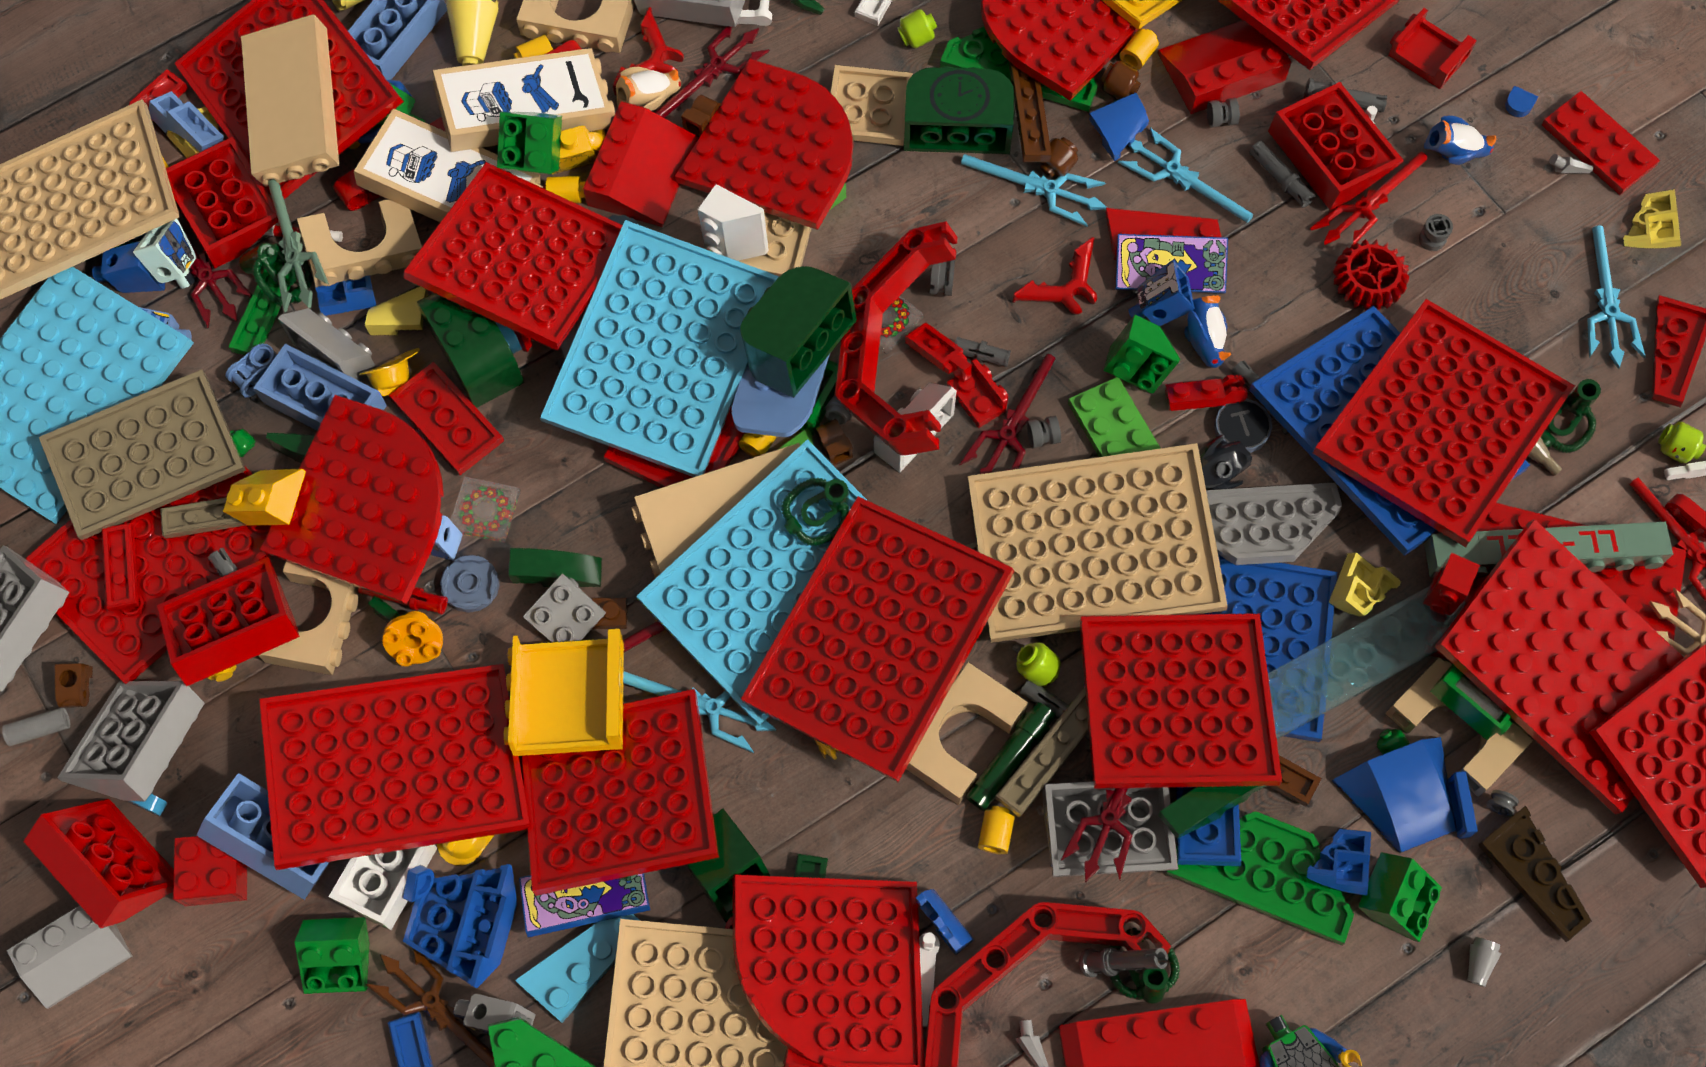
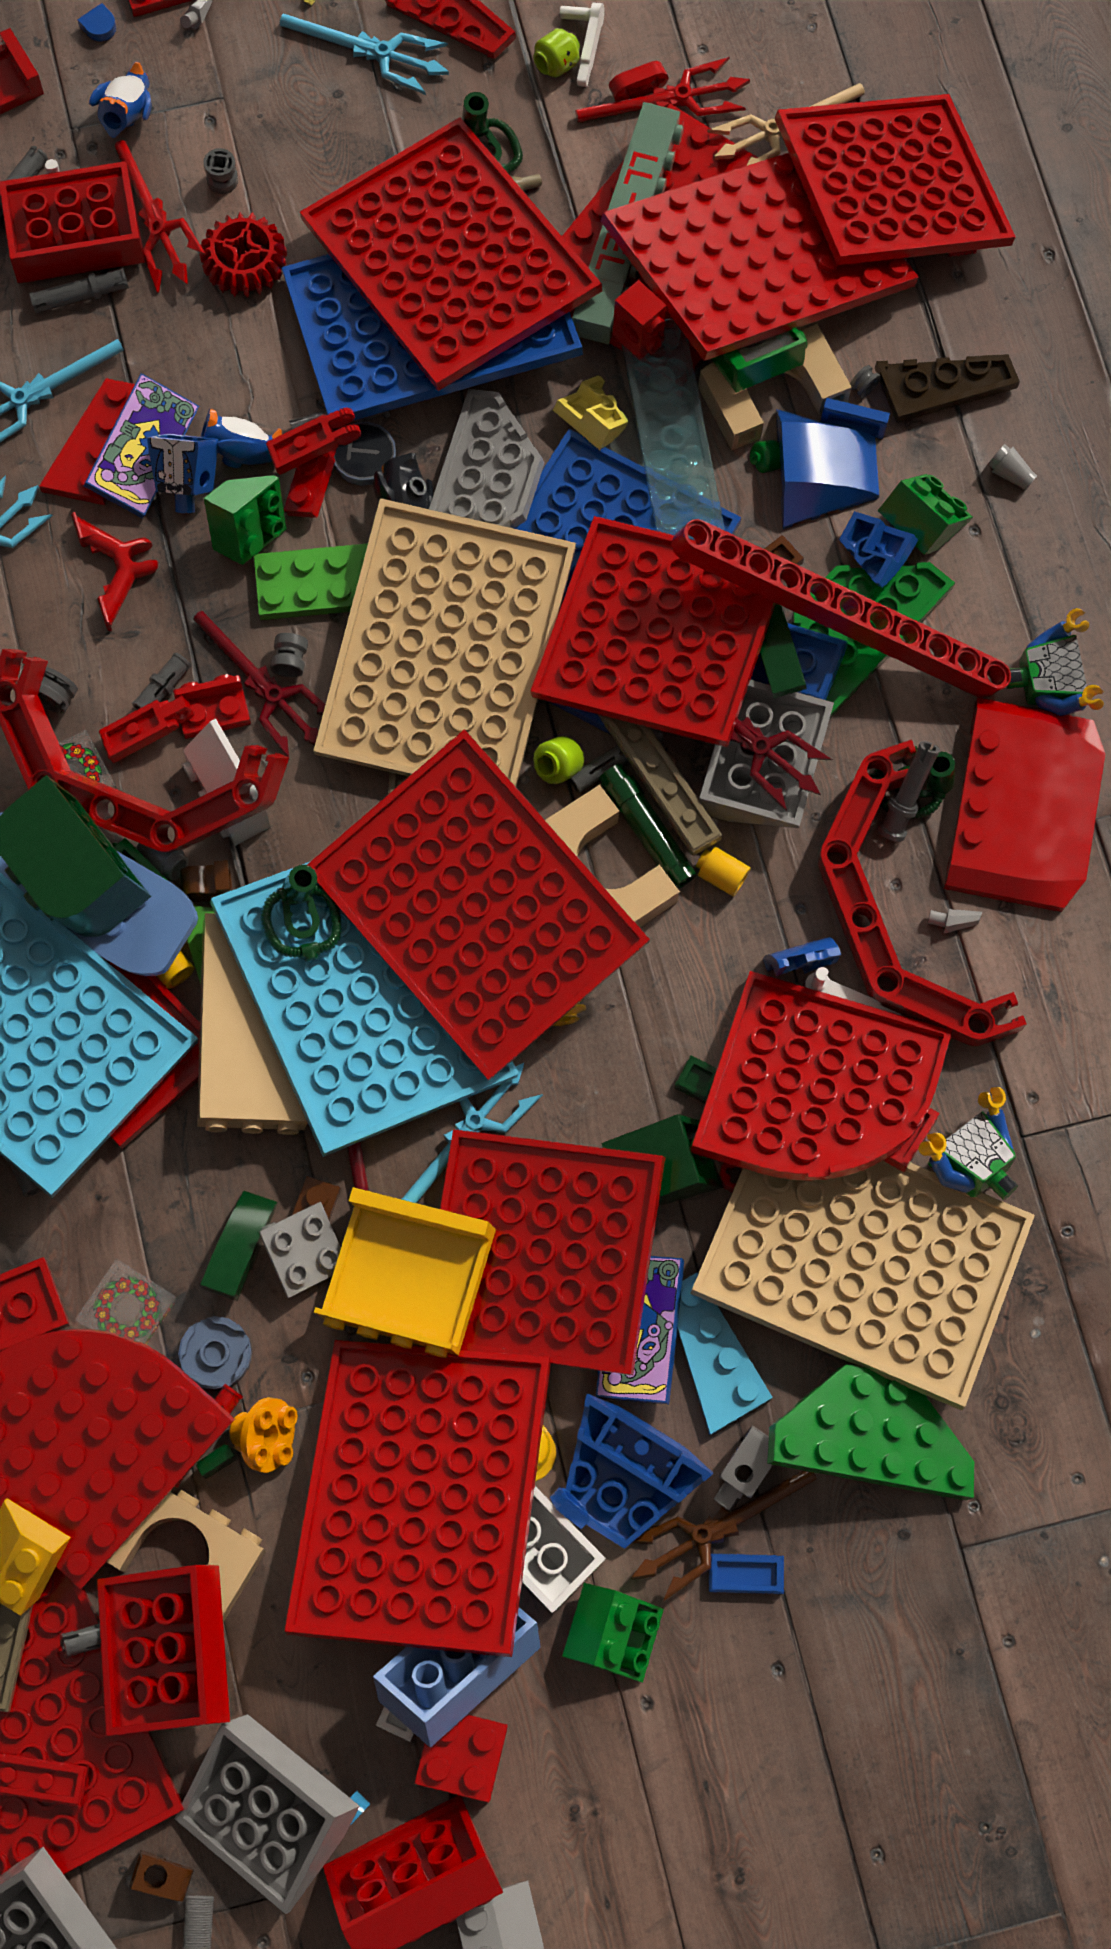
camera: 75 degrees left, 5 degrees up
(1228, 378) = (312, 440): none -> red hinge
(1268, 857) = (827, 609): none -> red beam

